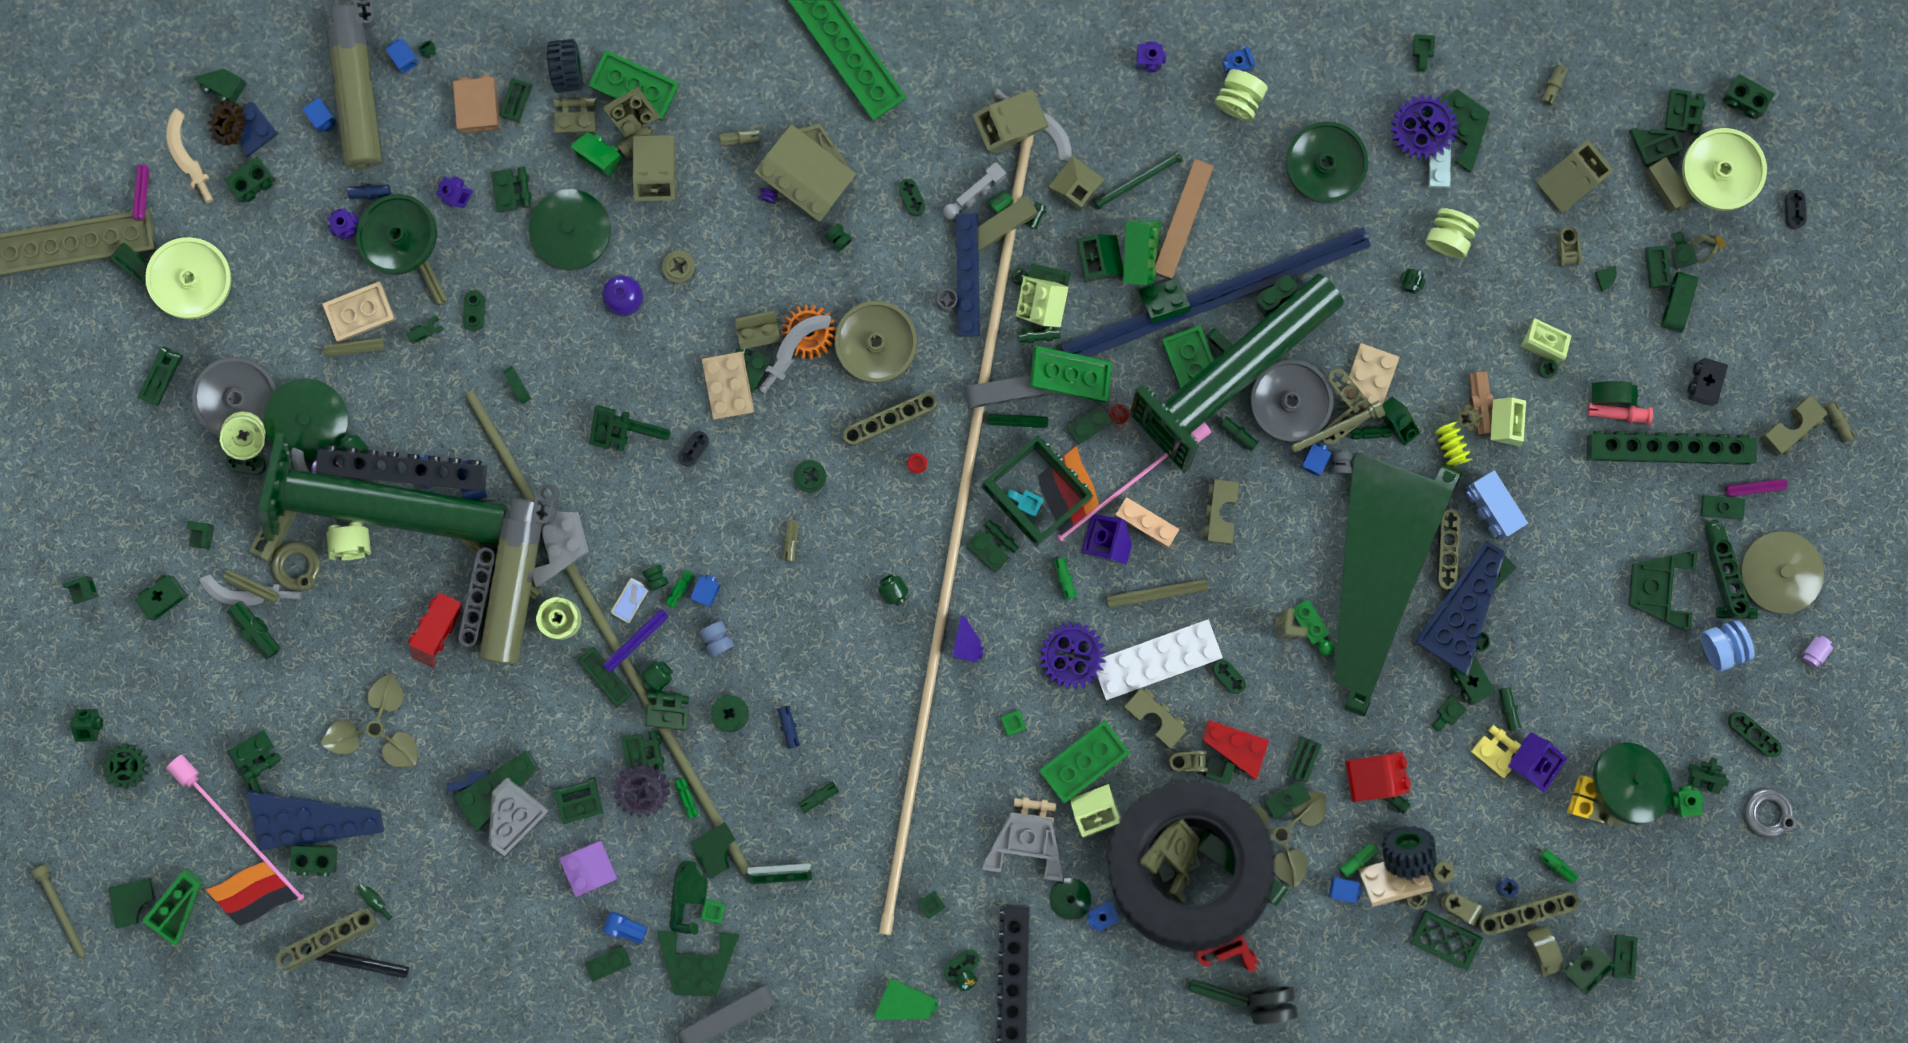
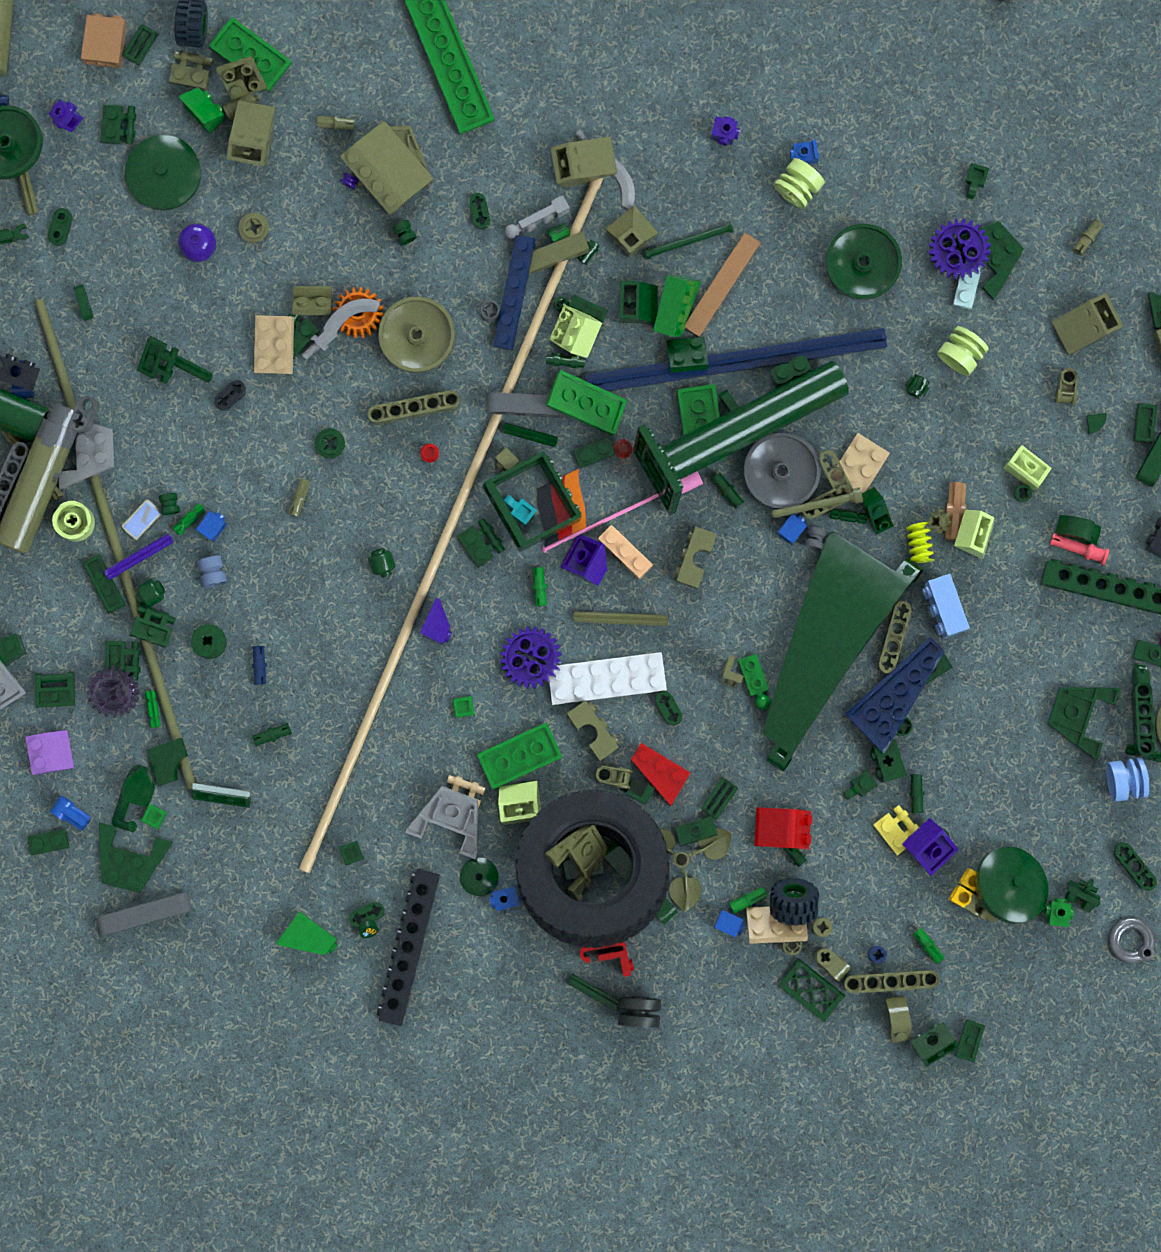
camera: 10 degrees right, 0 degrees up
(1000, 454) = (506, 460): none -> olive plate

